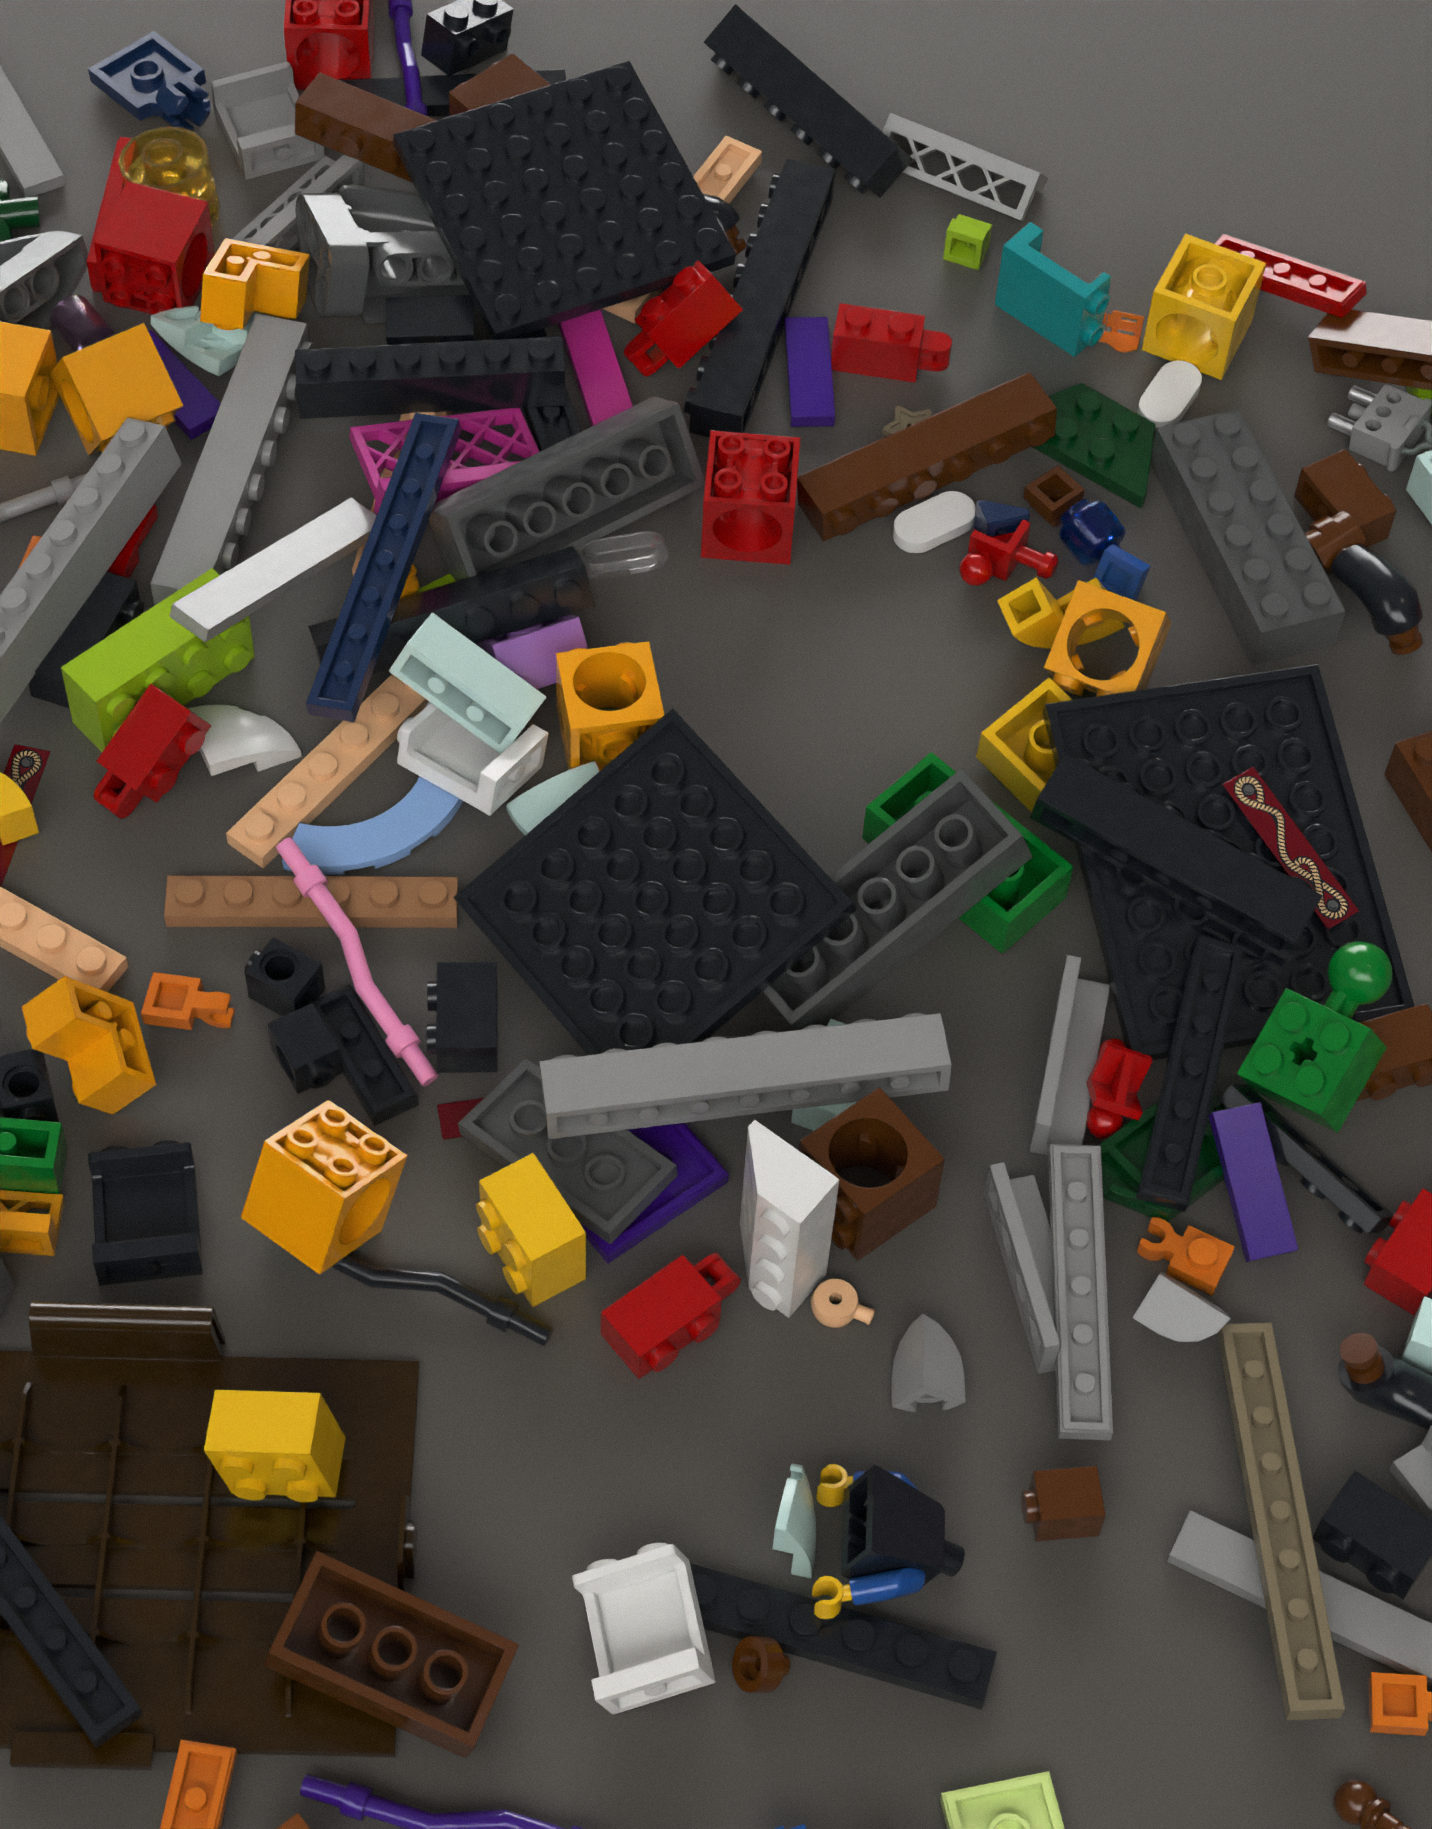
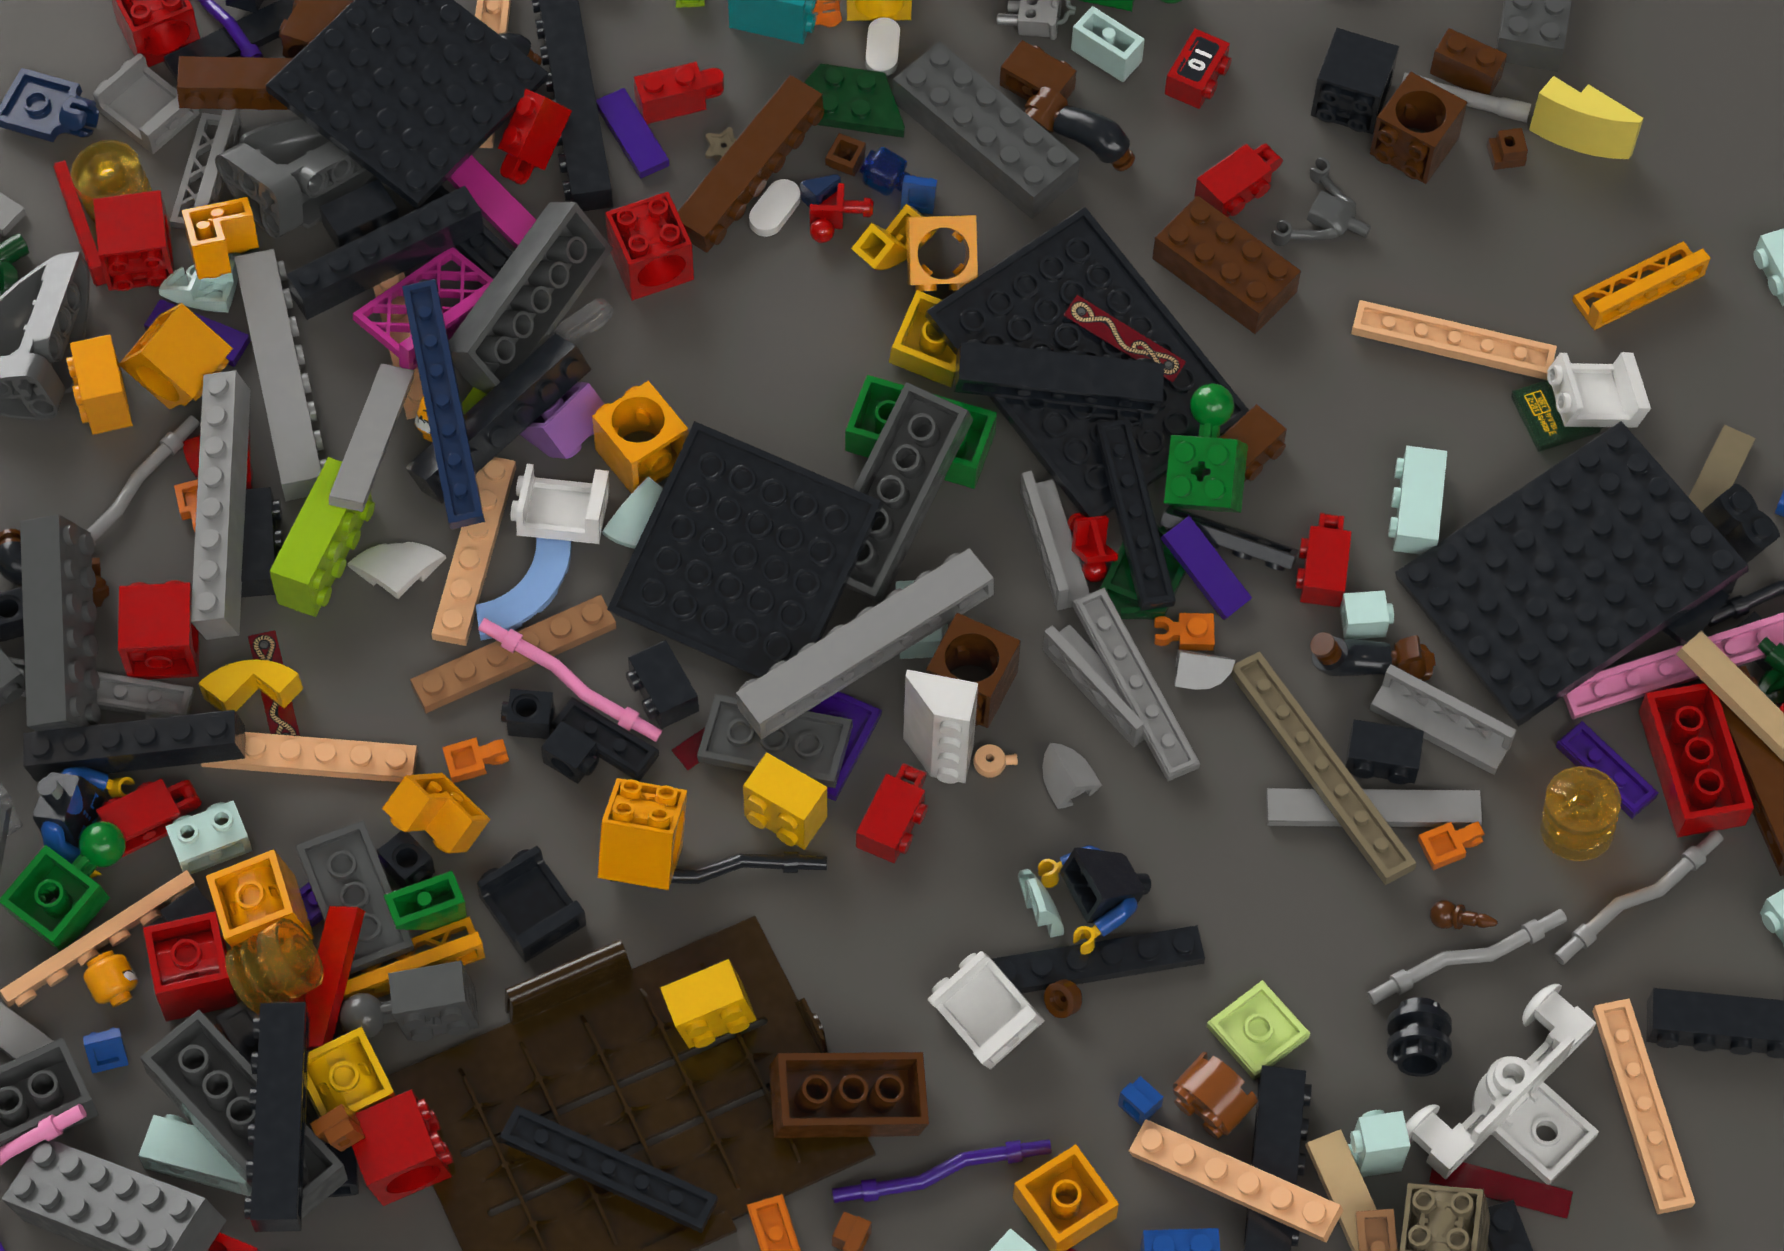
camera: 25 degrees left, 5 degrees up
(79, 323) = (113, 319): brick -> none
(148, 752) = (351, 601): red brick -> none
(467, 683) = (541, 461): light aqua brick -> none
(1064, 1503) = (1192, 819): reddish brown brick -> none

